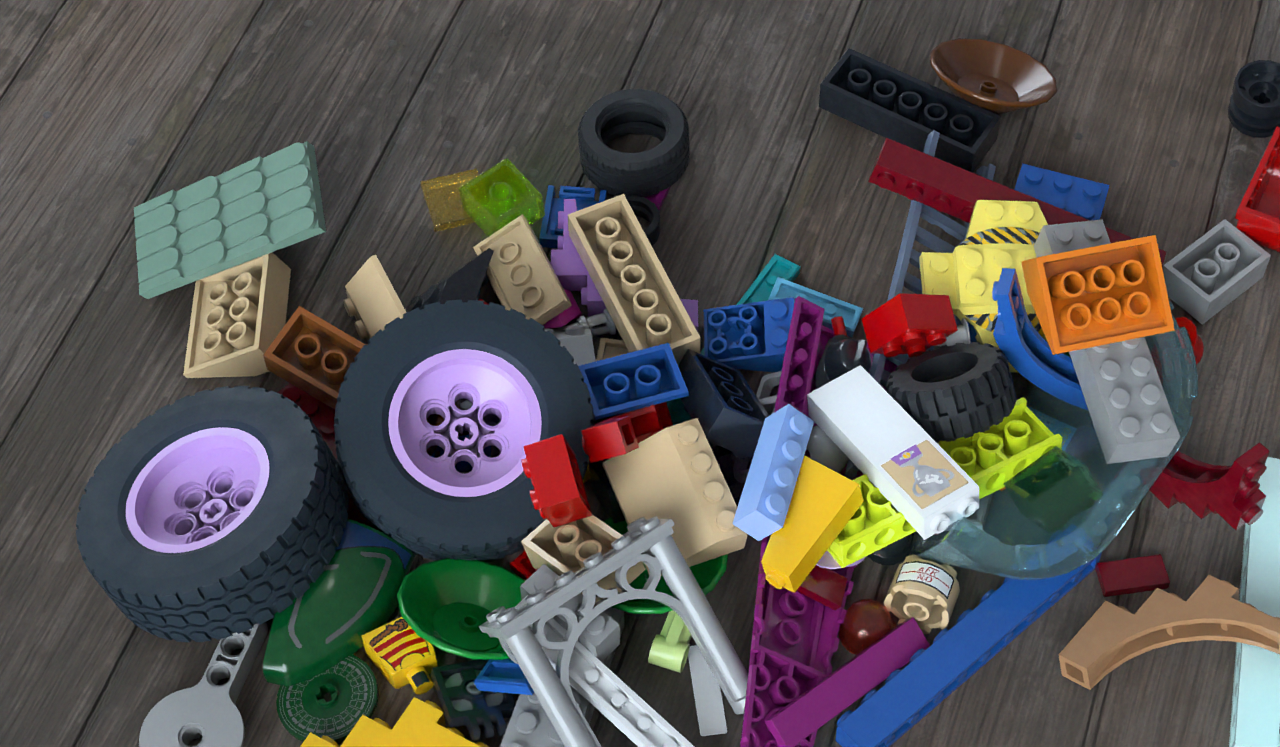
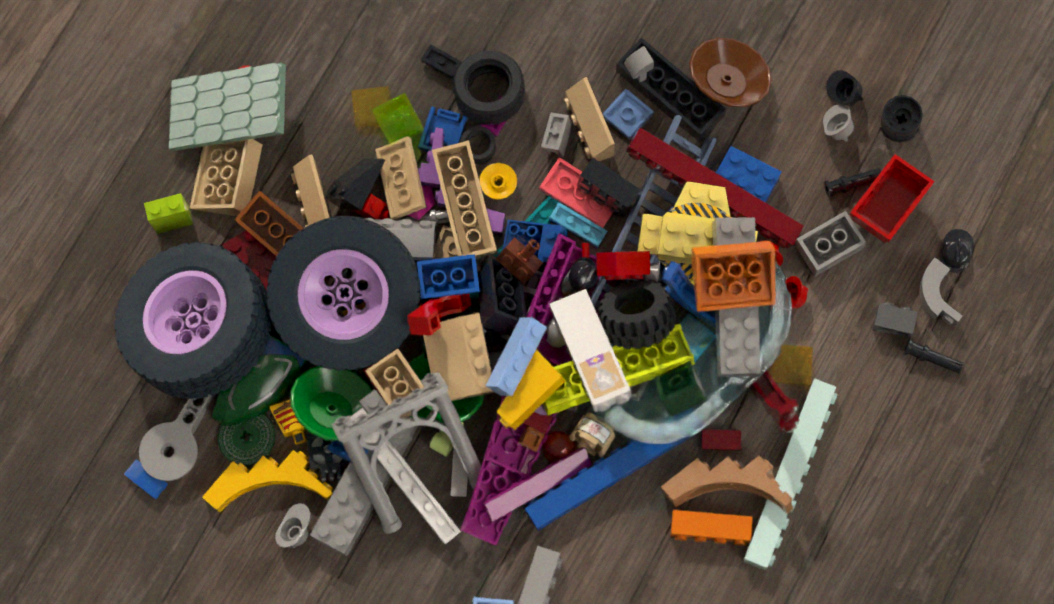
camera: 15 degrees right, 20 degrees up
(150, 375) = (168, 213): none -> lime brick
(550, 127) = (440, 61): none -> black plate
(556, 480) = (388, 345): red brick -> none
(683, 258) = (494, 173): none -> yellow dish
(740, 353) = (520, 259): none -> copper brick
(751, 191) = (557, 134): none -> light grey hinge
(800, 165) = (590, 121): none -> tan slope
(807, 262) = (562, 186): none -> coral tile
(820, 616) = (531, 439): none -> dark orange tile
(848, 157) = (627, 114): none -> medium blue tile
(852, 239) = (607, 188): none -> black brick
(859, 65) = (639, 64): none -> light grey brick
(1160, 708) = (711, 527): none -> orange brick
(1163, 76) = (844, 88): none -> black piece
(1170, 119) = (838, 122): none -> light grey piece
(1205, 196) = (843, 184): none -> black pin
(1213, 442) = (793, 365): none -> clear yellow tile

